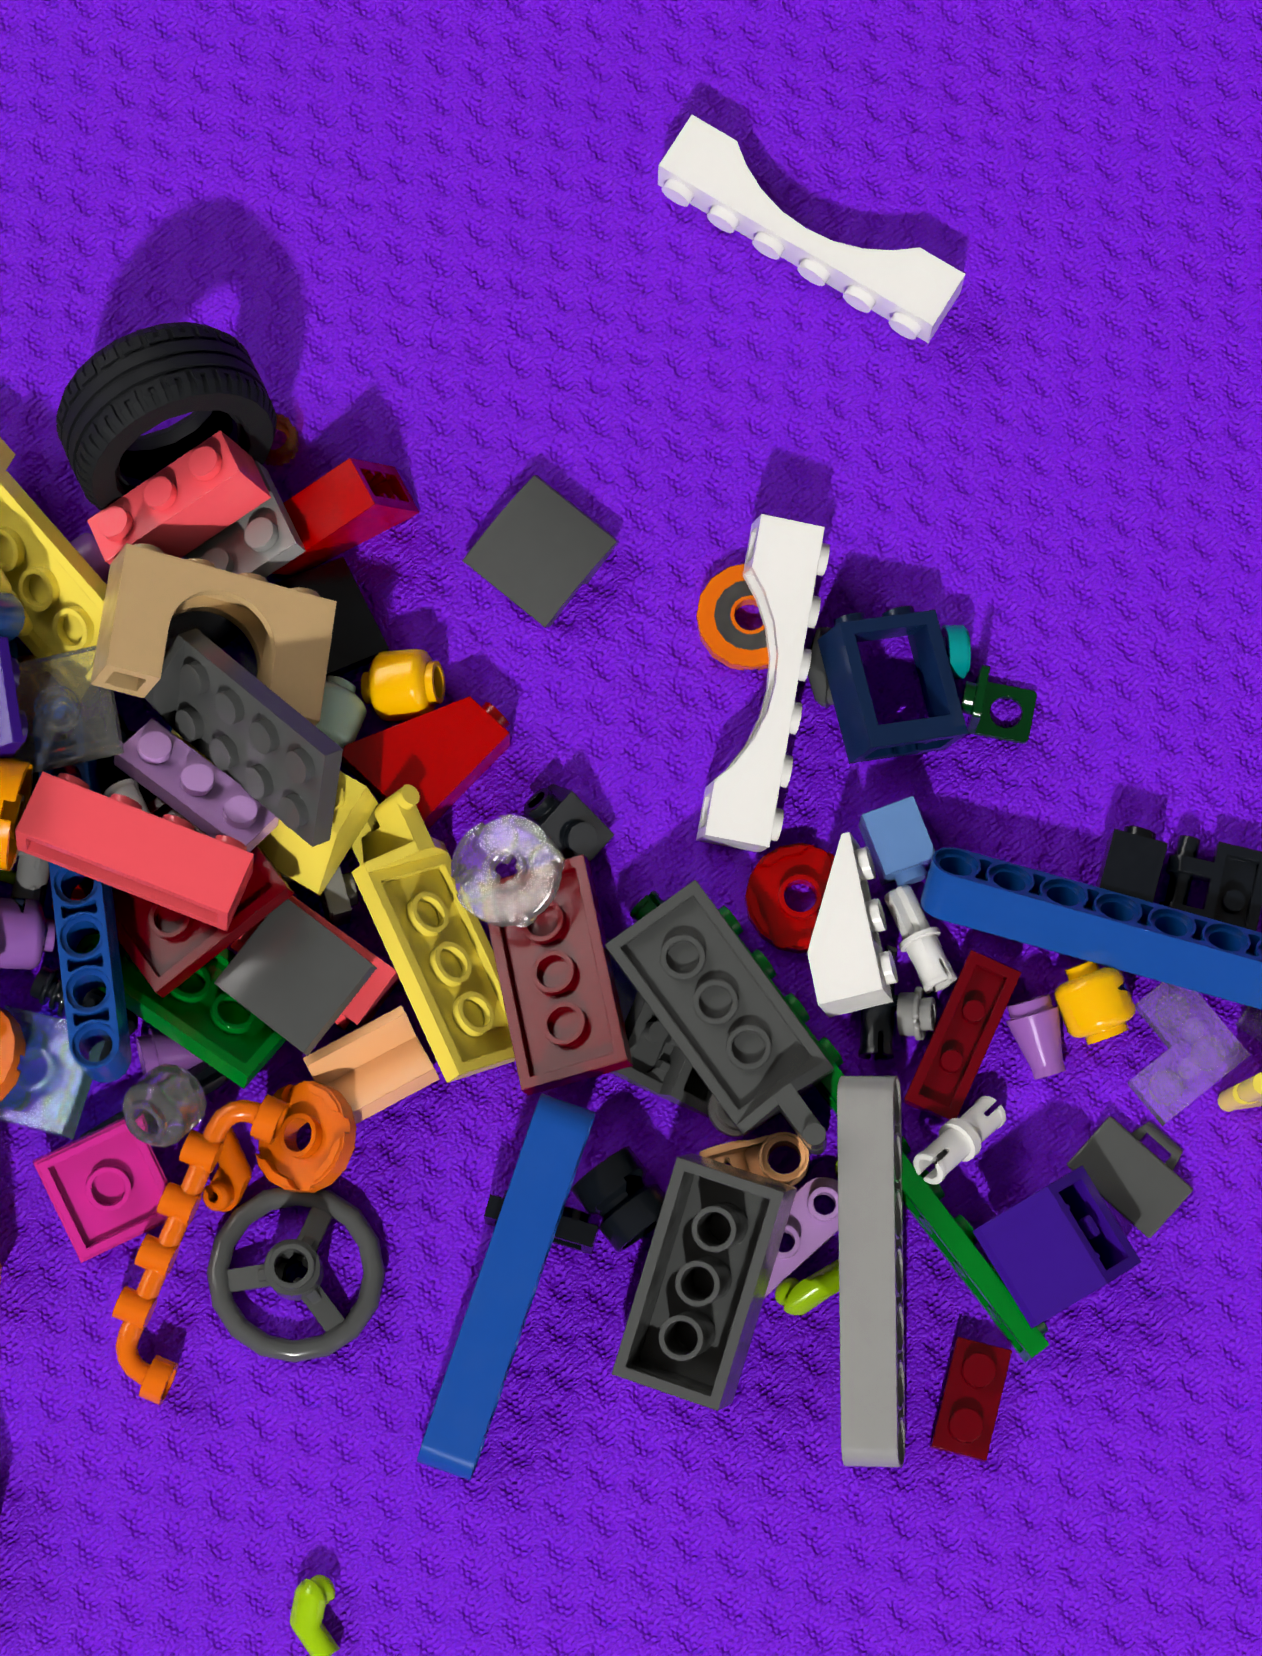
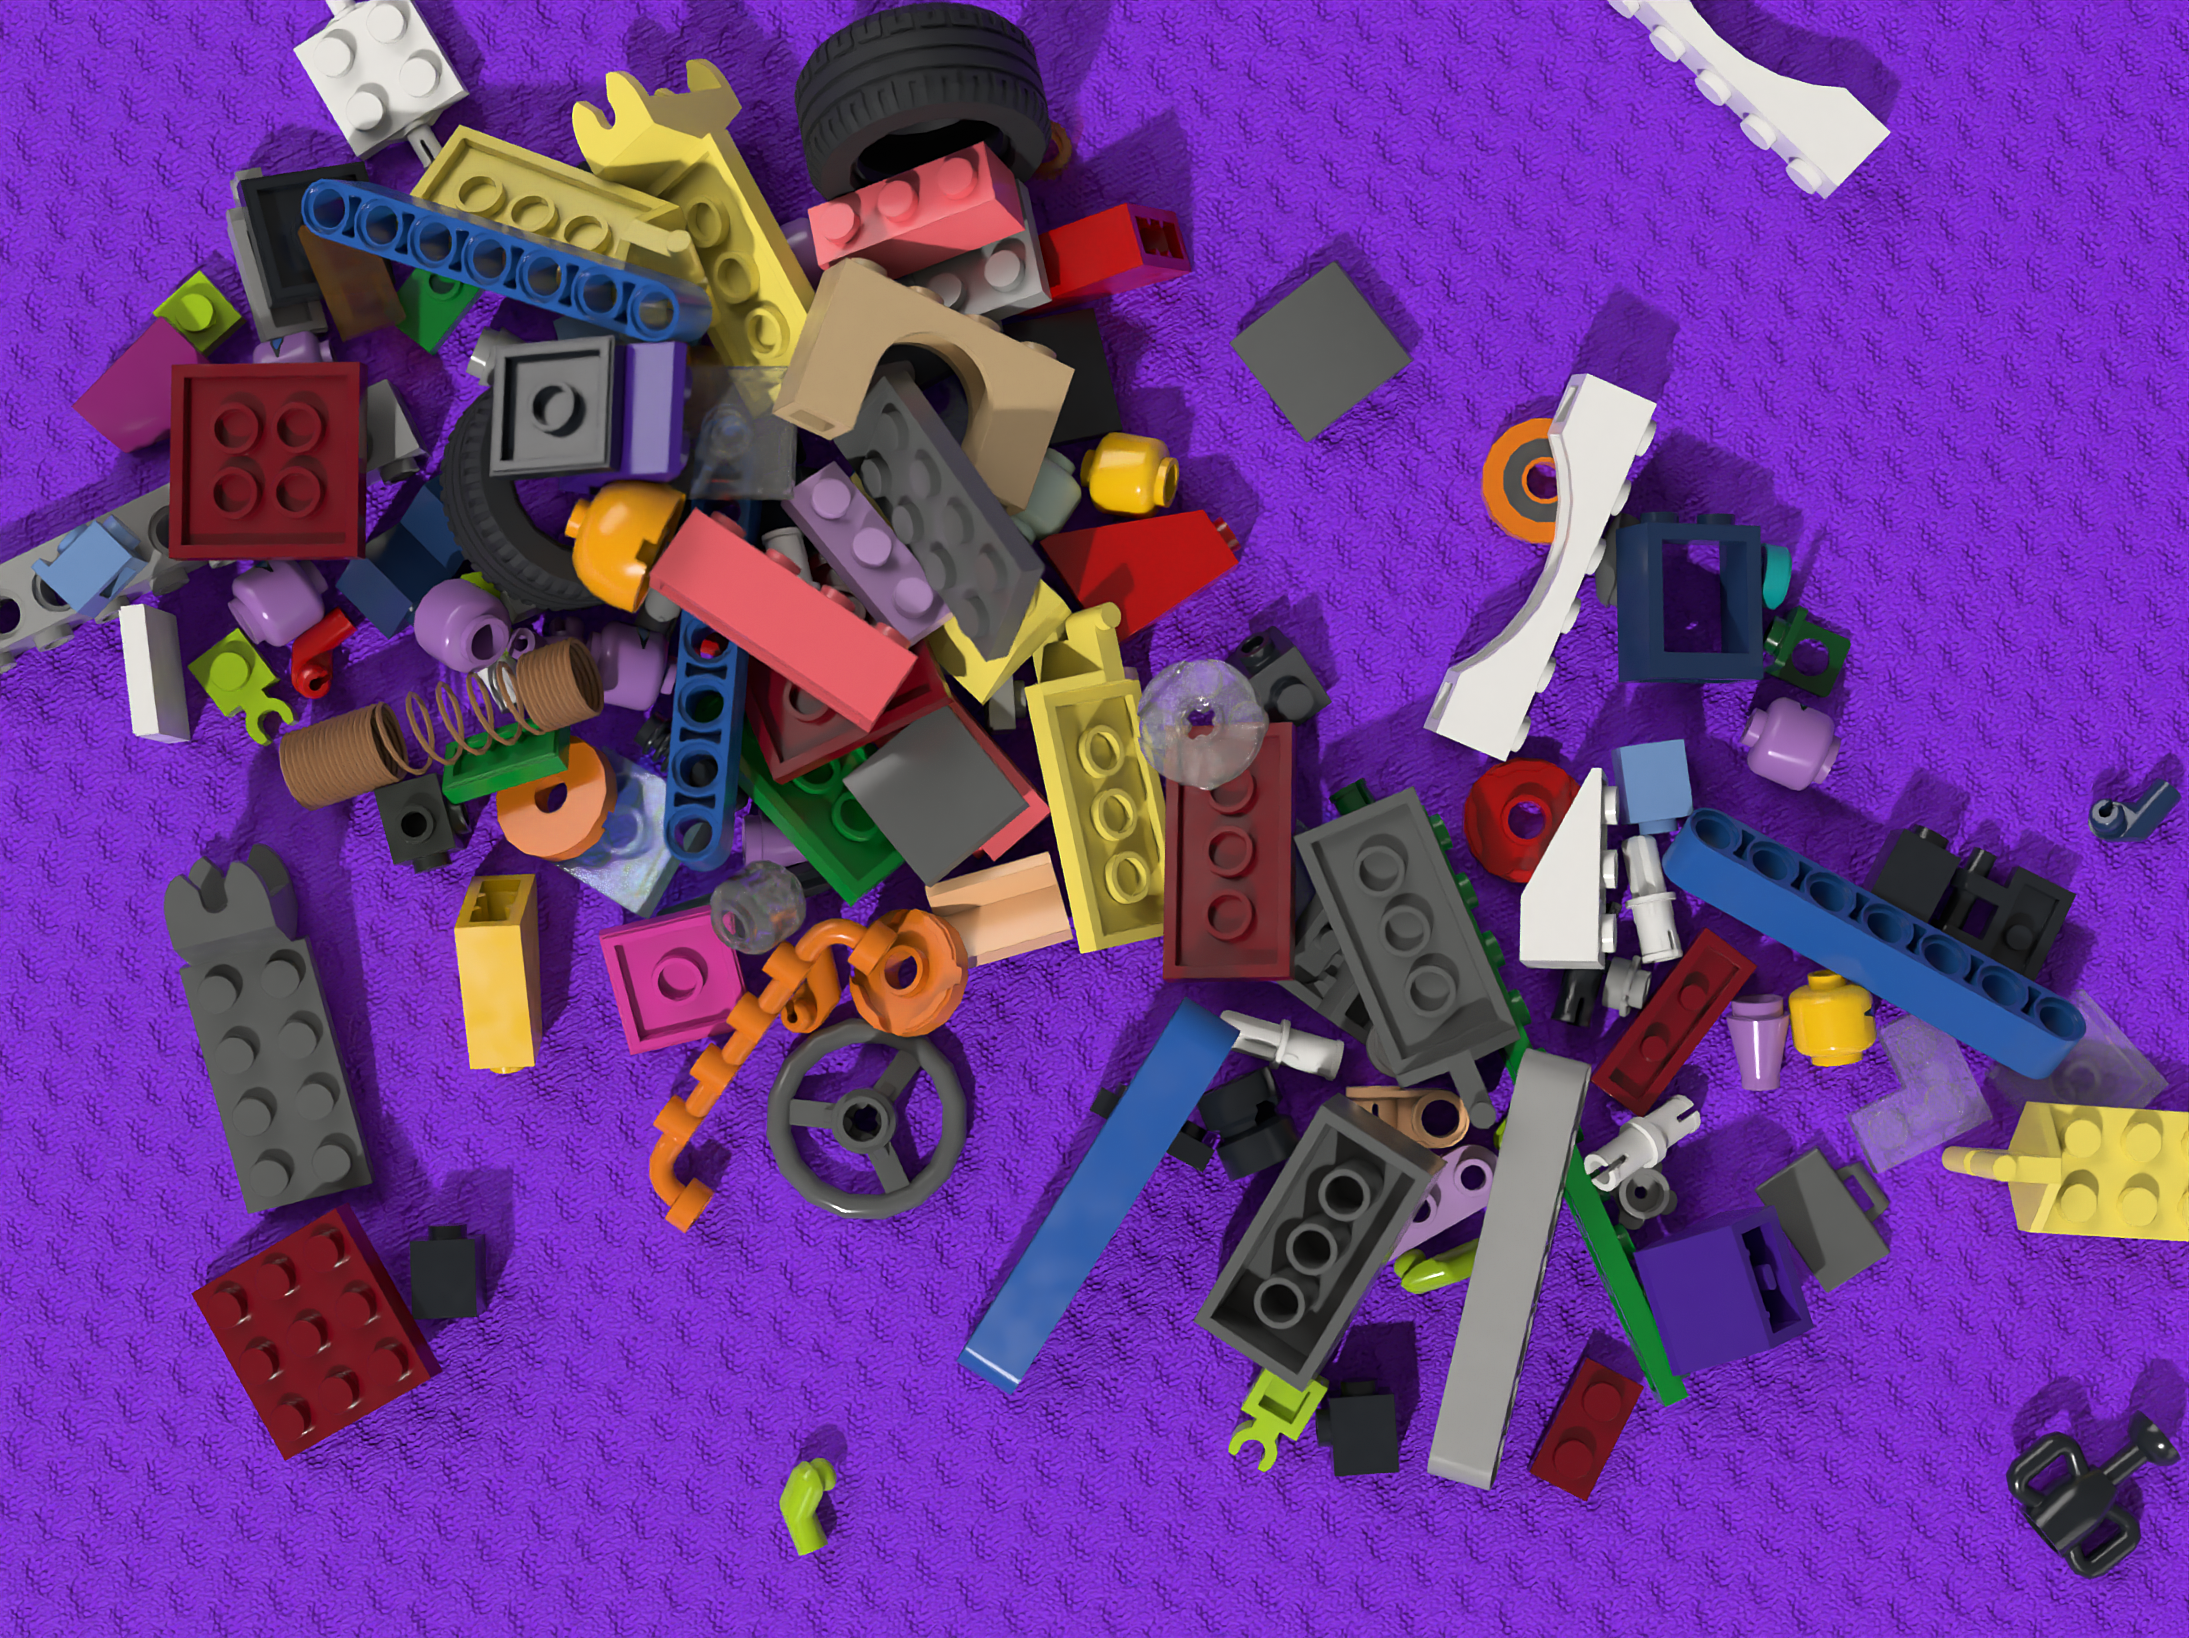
camera: 15 degrees right, 10 degrees up
(640, 1129) = (1285, 1045): none -> white axle
(703, 1436) = (1275, 1409): none -> lime plate
(776, 1439) = (1359, 1428): none -> black brick
(985, 1189) = (1657, 1200): none -> light grey plate
(1004, 783) = (1790, 743): none -> medium lavender head

